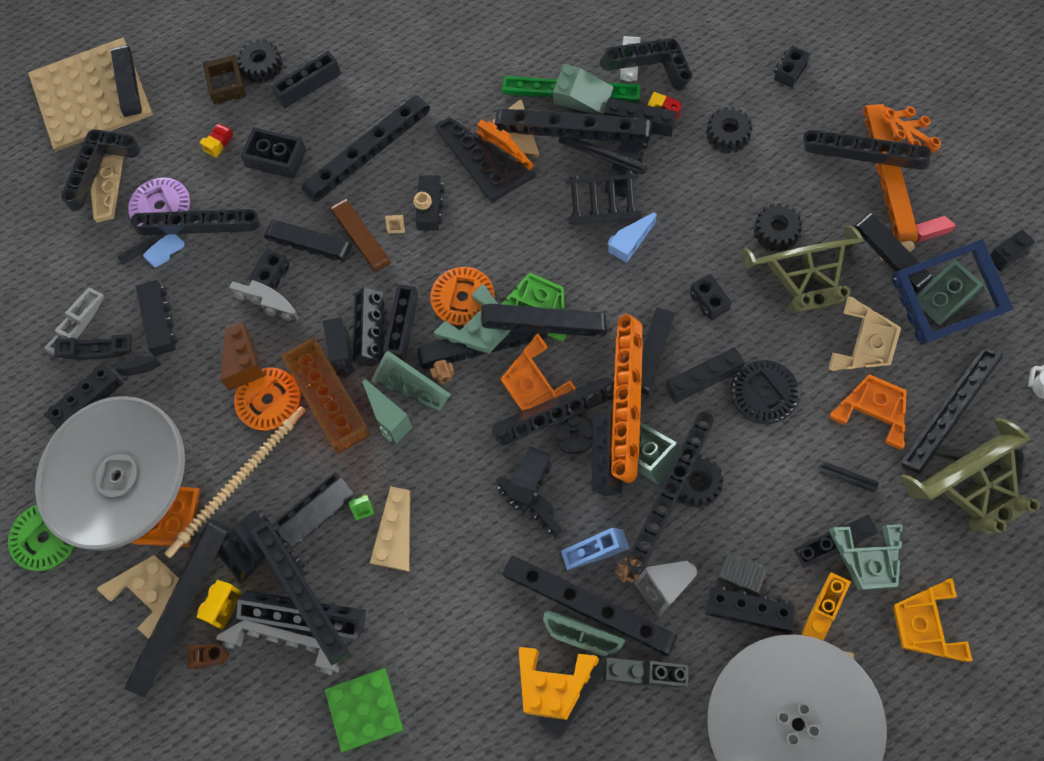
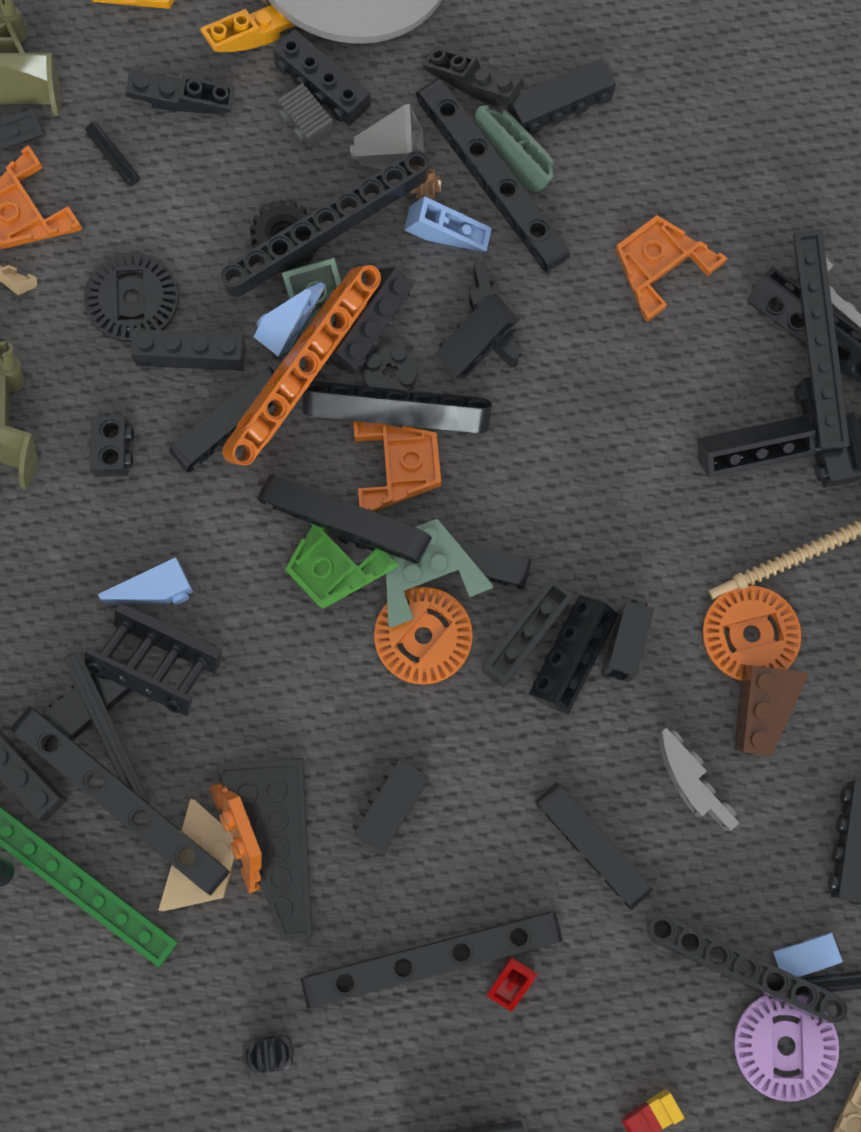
camera: 160 degrees left, 10 degrees up
(265, 268) = (672, 832): black brick -> none
(273, 152) = (577, 1030): black brick -> none
(317, 159) = (511, 983): none -> red slope
(326, 395) = (675, 587): clear orange brick -> none
(360, 235) = (515, 812): reddish brown beam -> none
(361, 507) = (695, 421): bright green tile -> none
(363, 710) = (794, 201): bright green plate -> none
(392, 420) = (608, 505): sand green slope -> none
(393, 537) = (672, 370): tan wing -> none
(395, 224) = (456, 801): tan slope -> none
(402, 377) = (556, 544): sand green wing -> none
(422, 200) = (402, 800): tan plate -> none
(425, 67) = (268, 1054): none -> black gear
(442, 371) = (508, 537): medium nougat gear -> none
(446, 610) = (656, 251): none -> orange wing
(552, 693) = (588, 102): light orange wing -> none
(581, 91) = (66, 858): sand green slope -> none
(656, 420) = (284, 324): none -> light blue slope
(871, 566) = (157, 46): sand green wing -> none

